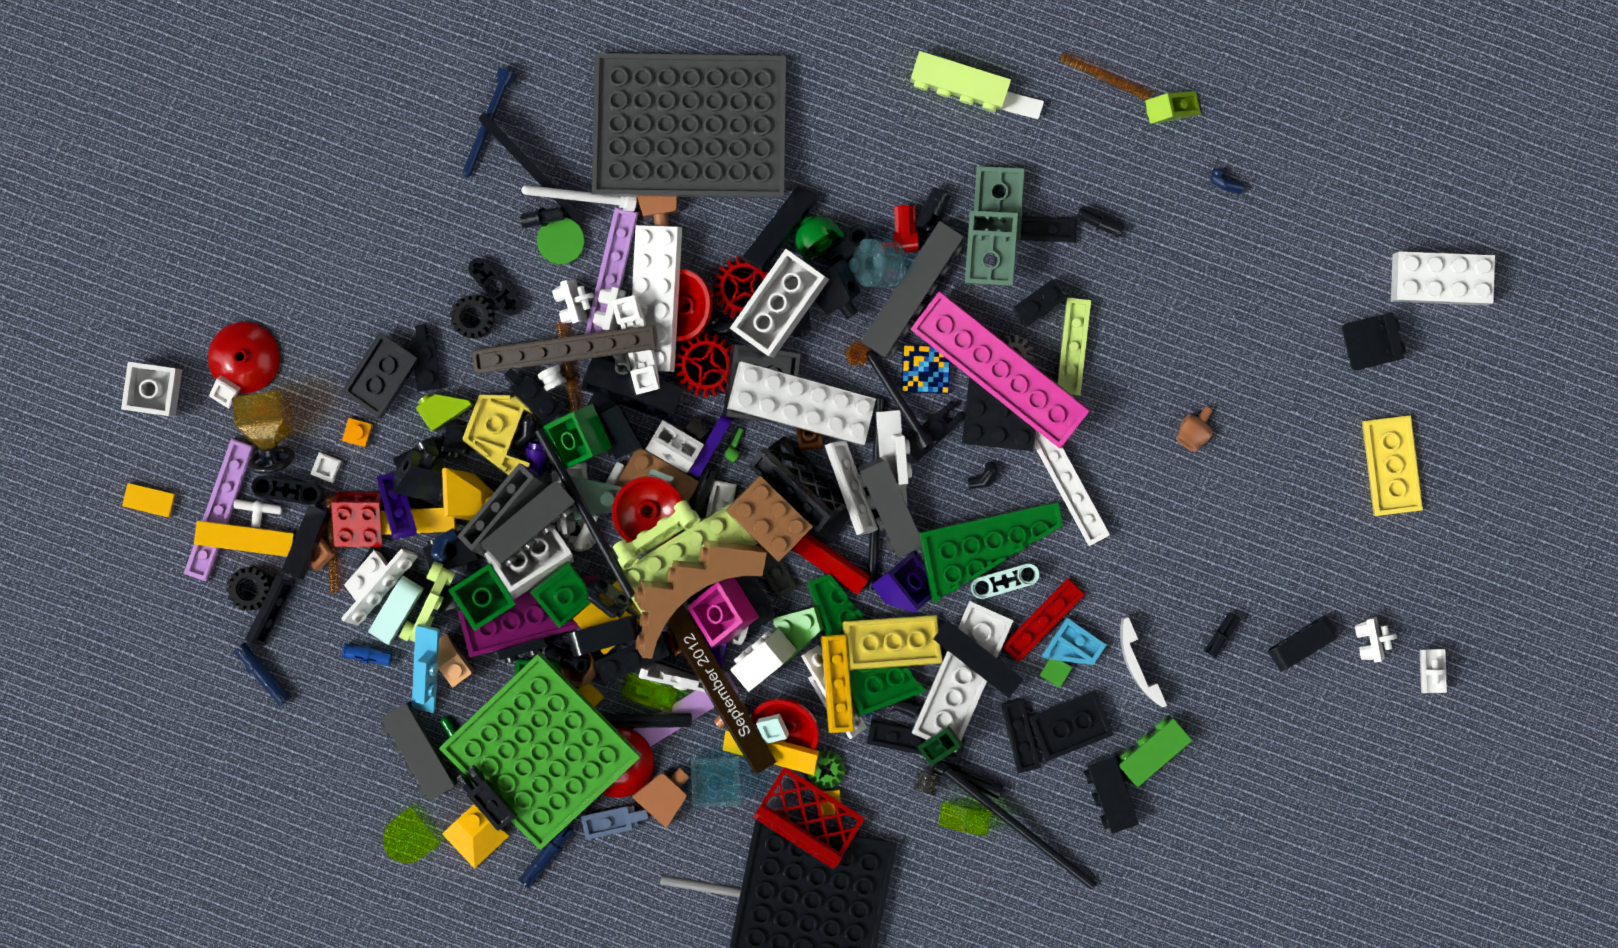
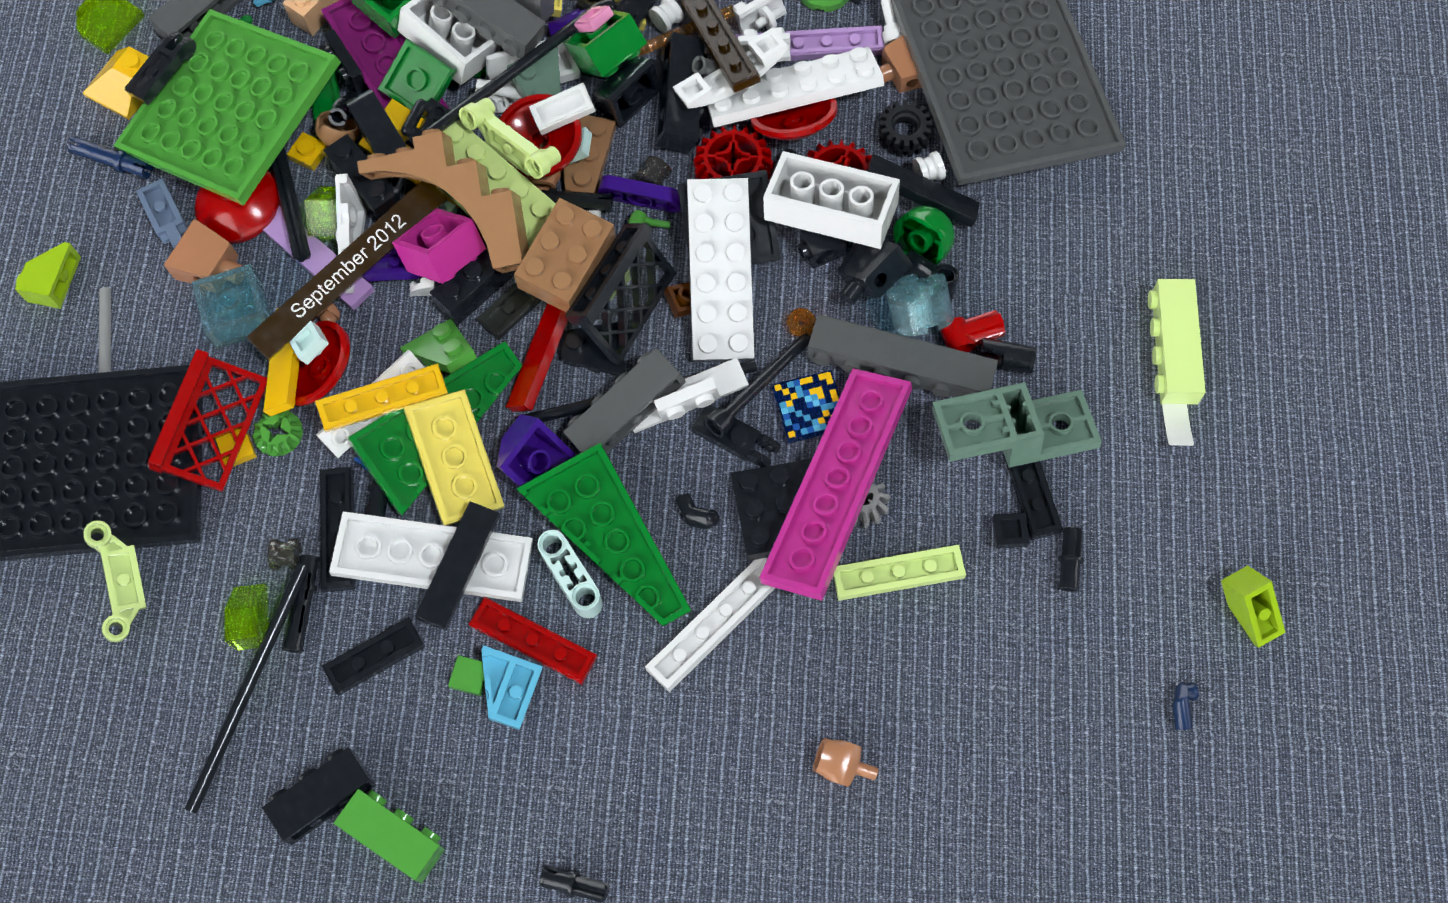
camera: 75 degrees right, 20 degrees down
(557, 440) = (593, 19): none -> bright pink tile
(635, 487) = (562, 108): none -> white tile
(642, 921) = (48, 276): none -> lime slope
(674, 446) = (626, 148): white brick -> none
(716, 206) = (907, 114): none -> black tyre
(758, 214) = (930, 167): none -> white wheel
(762, 658) = (393, 309): white brick -> none
(850, 487) = (666, 337): white tile -> none
(914, 904) = (121, 579): none -> yellowish green plate
(940, 745) = (334, 546): dark green slope -> none
(1039, 303) = (938, 511): black brick -> none
(1066, 256) = (1010, 530): none -> black plate
(1070, 725) = (400, 715): black plate -> none
(1104, 76) = (1255, 510): clear orange bar -> none
(1127, 636) = (471, 810): white slope -> none

